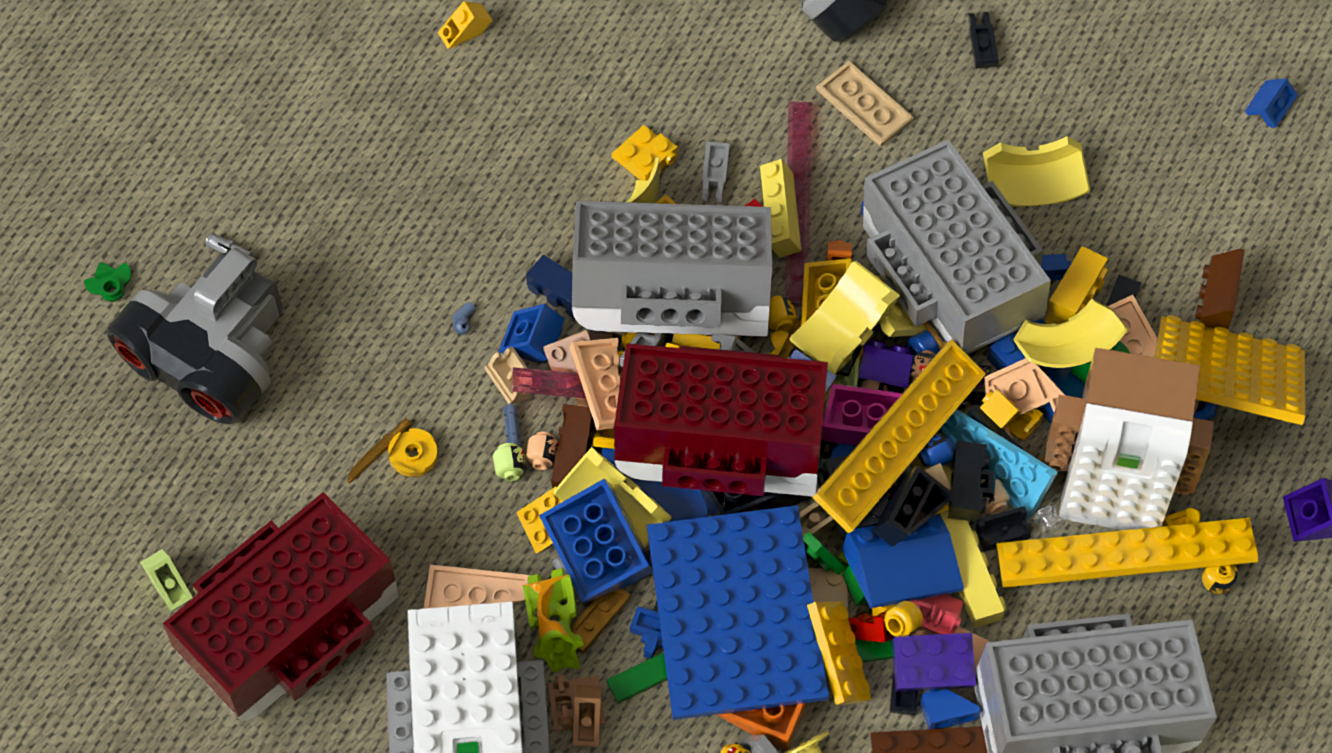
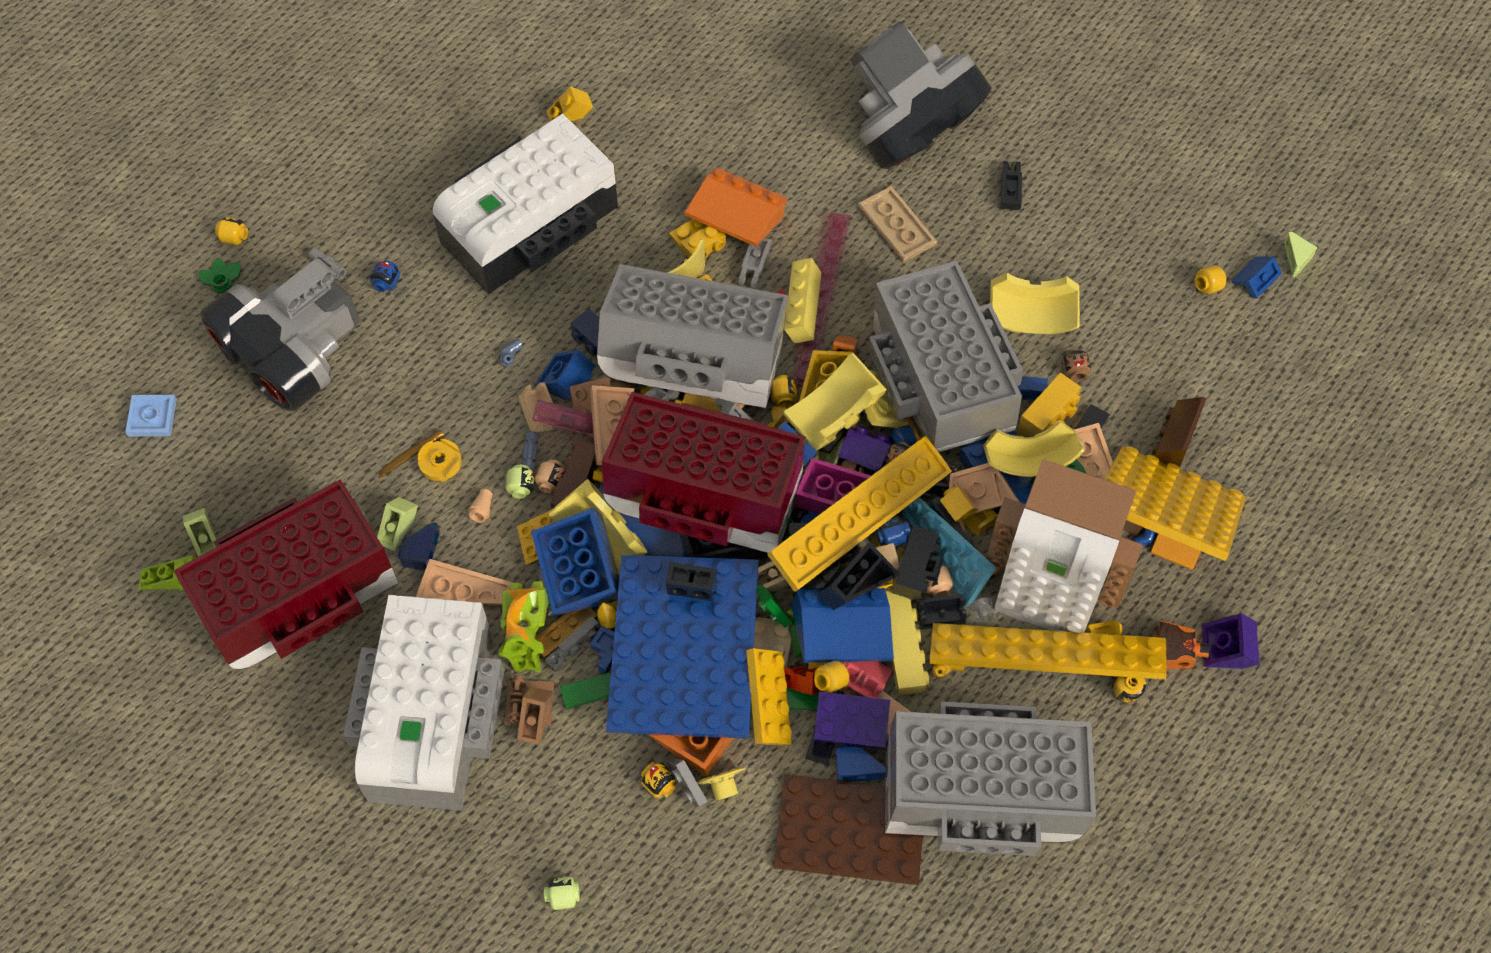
camera: 10 degrees right, 0 degrees up
(72, 455) = (151, 415): none -> light blue plate
(109, 228) = (231, 230): none -> yellow head
(140, 630) = (162, 575): none -> lime slope
(300, 253) = (385, 276): none -> blue head
(384, 525) = (396, 522): none -> yellowish green slope
(415, 554) = (419, 547): none -> clear blue slope
(446, 146) = (526, 203): none -> white piece
(472, 497) = (480, 508): none -> light nougat cone
(609, 632) = (572, 643): none -> dark grey hinge
(644, 592) = (607, 614): none -> yellow plate
(682, 112) = (736, 207): none -> orange slope
(733, 541) = (691, 581): none -> black brick
(1017, 592) = (942, 670): none -> yellow arm
(1094, 233) = (1076, 365): none -> medium nougat head
(1222, 114) = (1210, 279): none -> yellow head
(1240, 422) = (1175, 552): none -> light orange slope
(1266, 522) = (1181, 645): none -> torso
(1311, 69) = (1298, 252): none -> yellowish green slope

